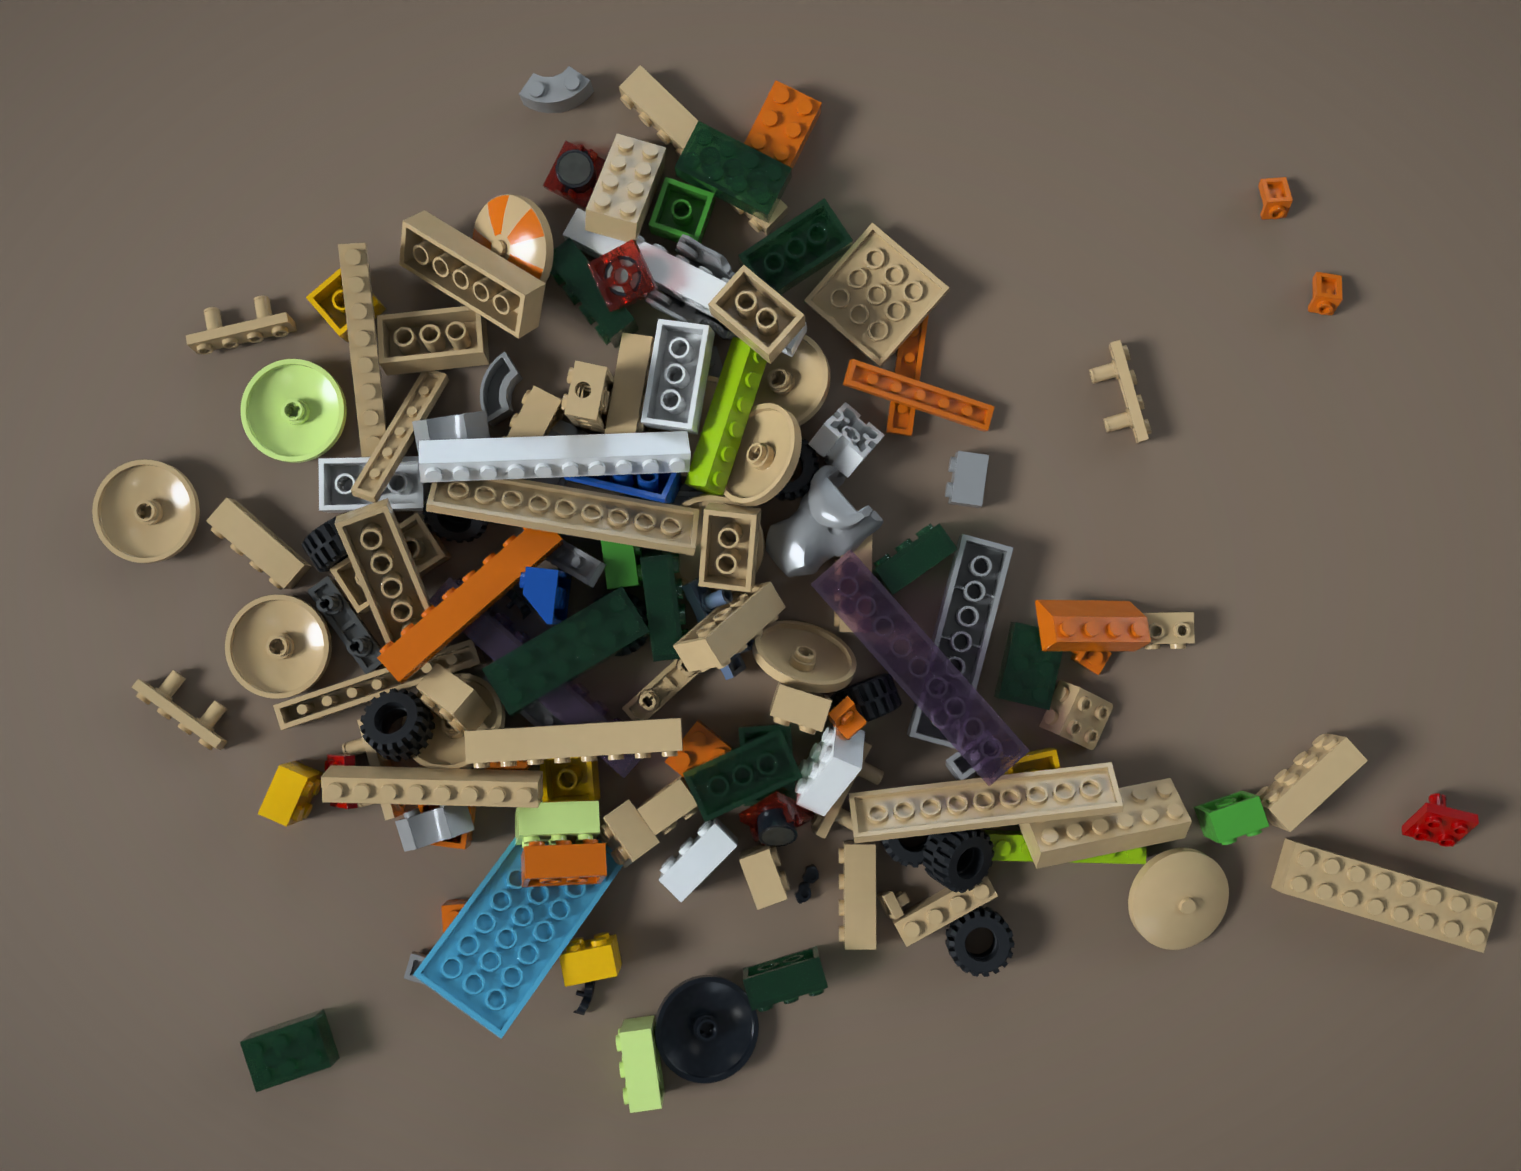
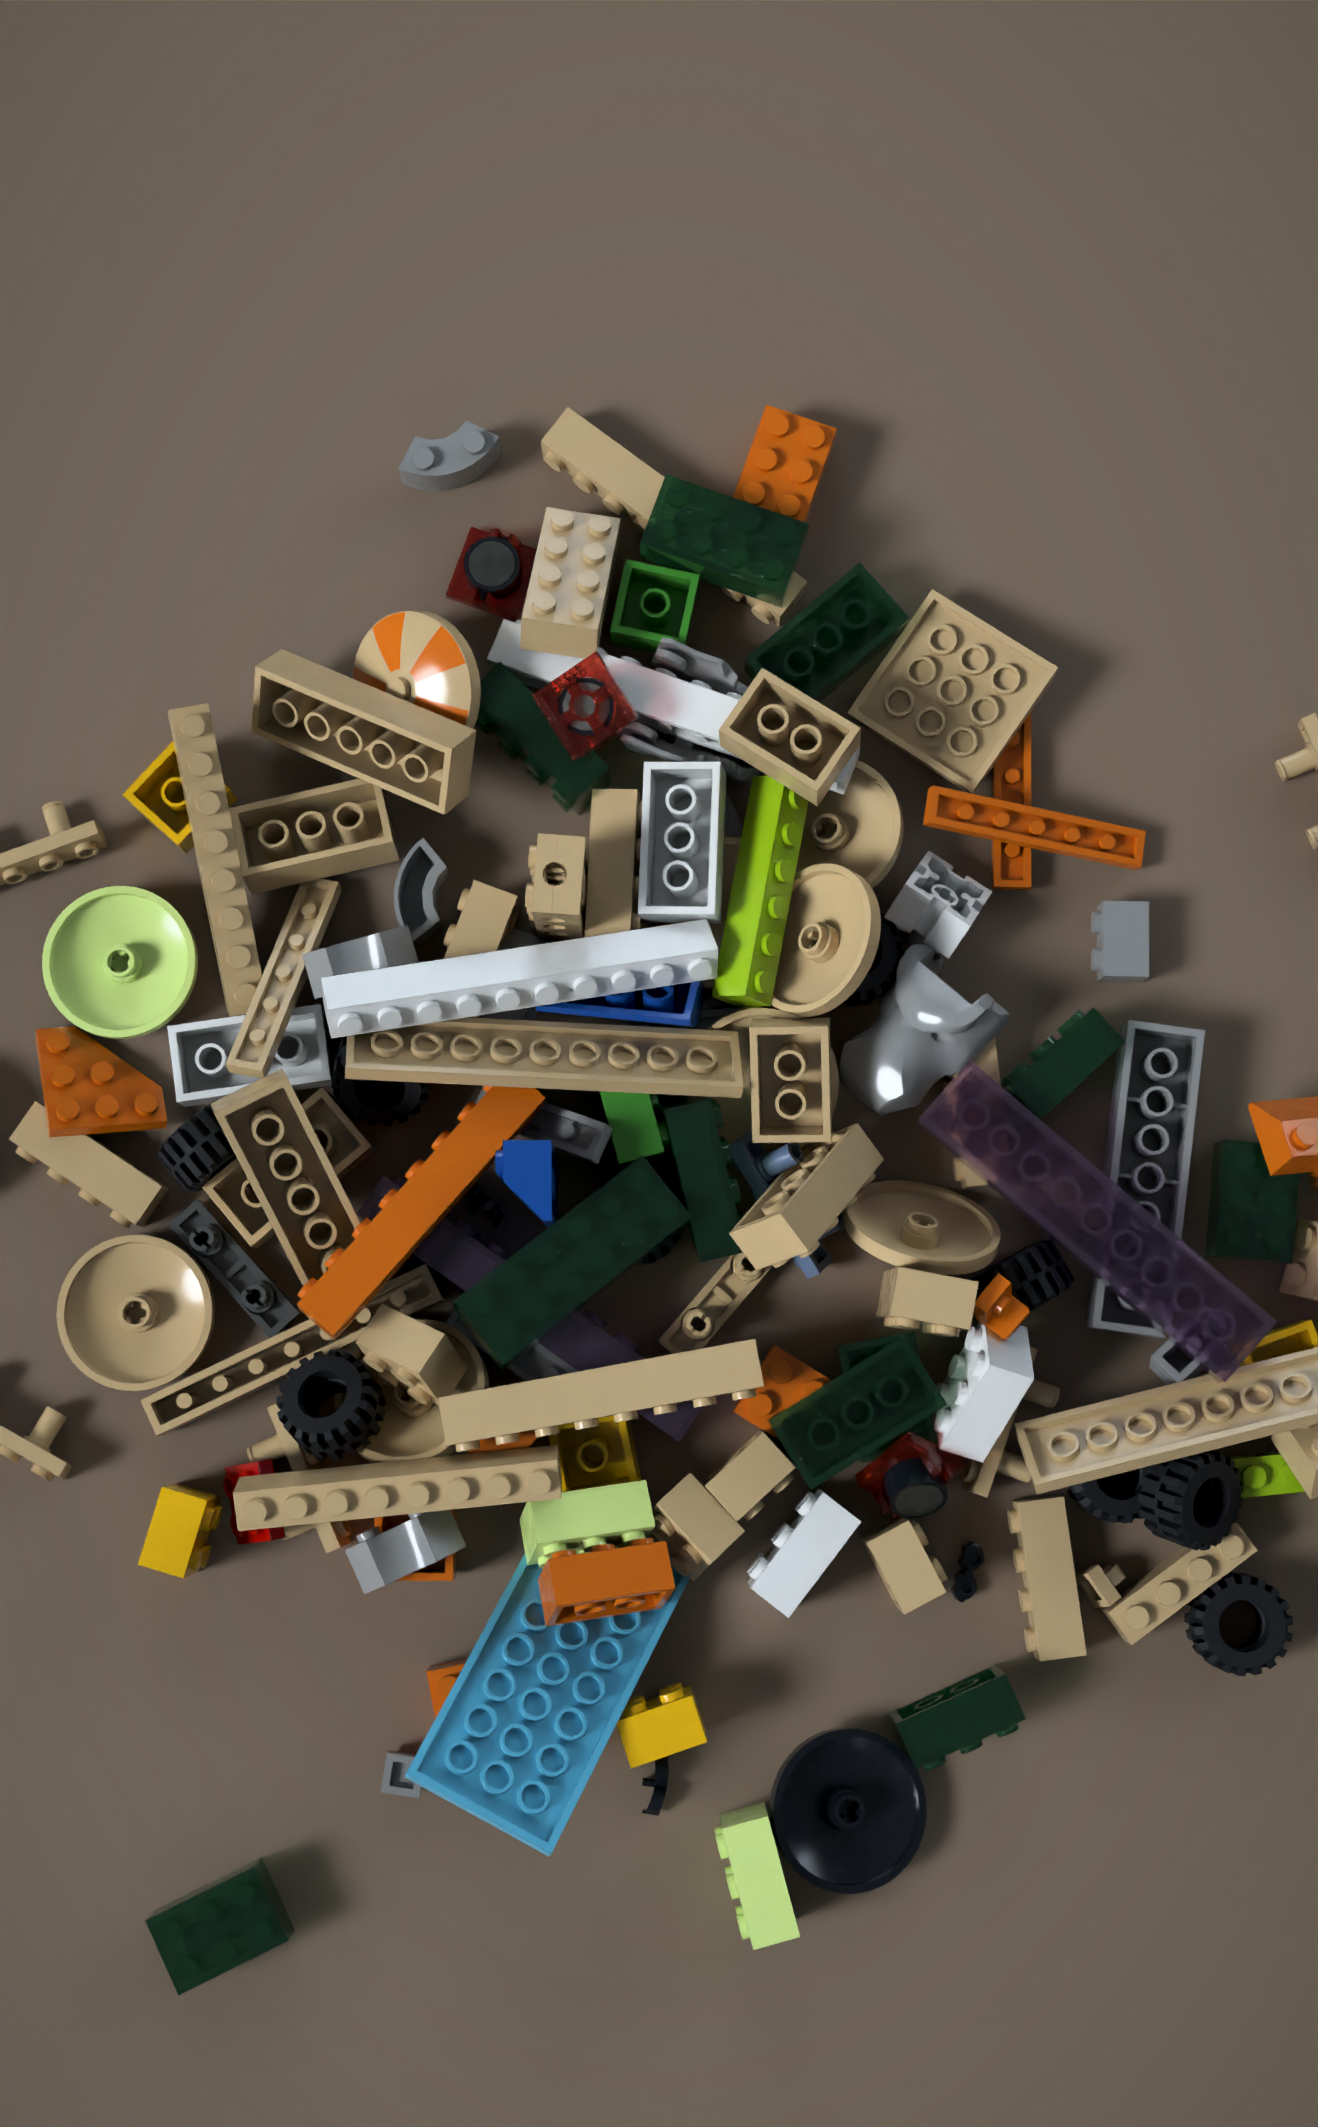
camera: 10 degrees left, 5 degrees down
(266, 493) = (93, 1088): none -> orange plate

